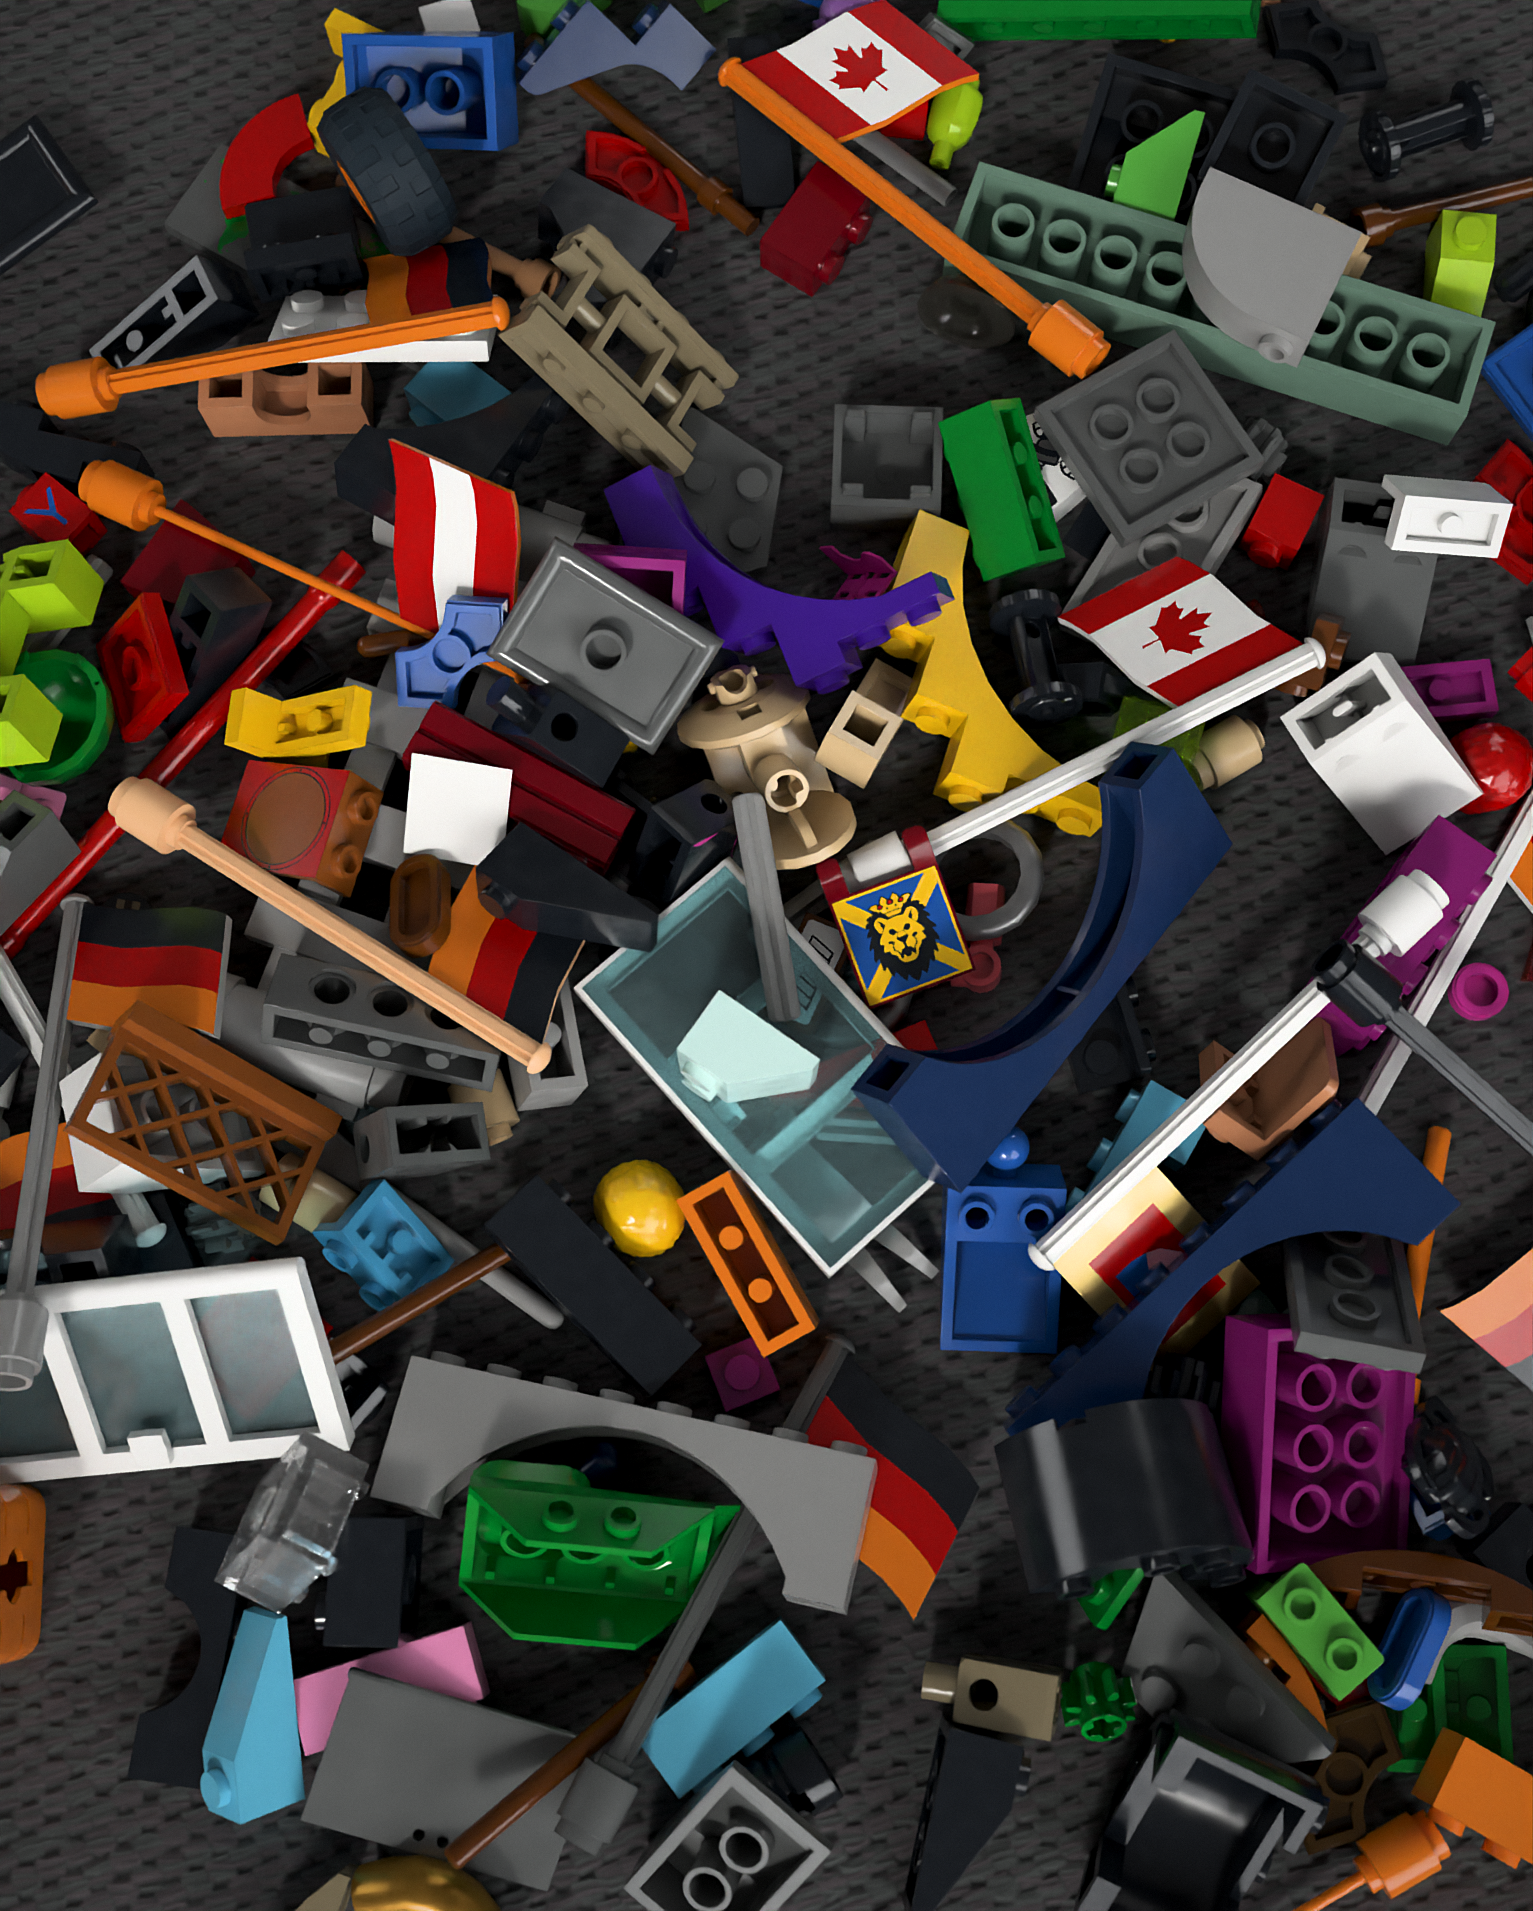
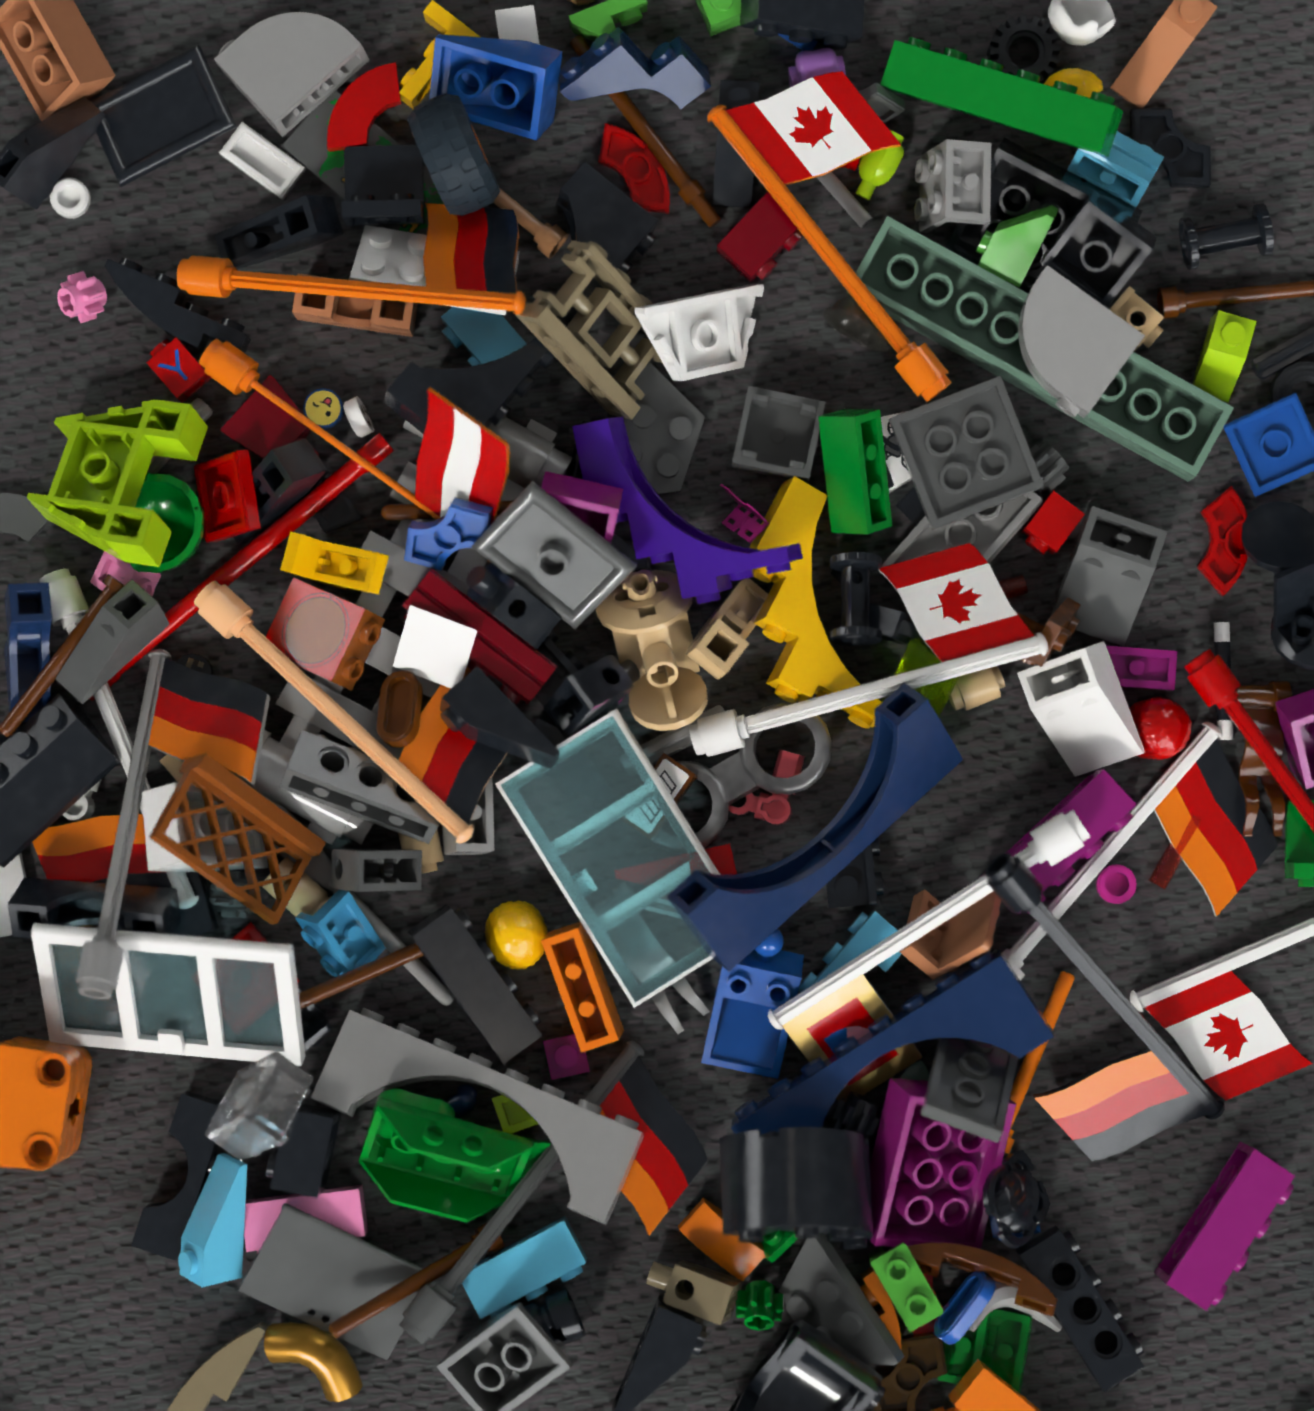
camera: 10 degrees right, 10 degrees up
(138, 246) = (262, 161): none -> white tile
(162, 118) = (291, 65): none -> light grey brick
(267, 535) = (324, 408): none -> light yellow tile
(311, 542) = (358, 417): none -> white tile
(676, 1474) = (511, 1115): none -> lime plate
(741, 1056) = (597, 857): light aqua slope -> none
(757, 349) = (702, 331): none -> white wing
(766, 907) = (634, 754): light grey axle -> none
(901, 929) = (724, 780): flag -> none
(1037, 1622) = (705, 1231): none -> orange slope
(1058, 109) = (953, 184): none -> light grey bracket
(1273, 53) = (1123, 173): none -> medium azure brick
(1446, 516) = (1160, 550): white panel -> none

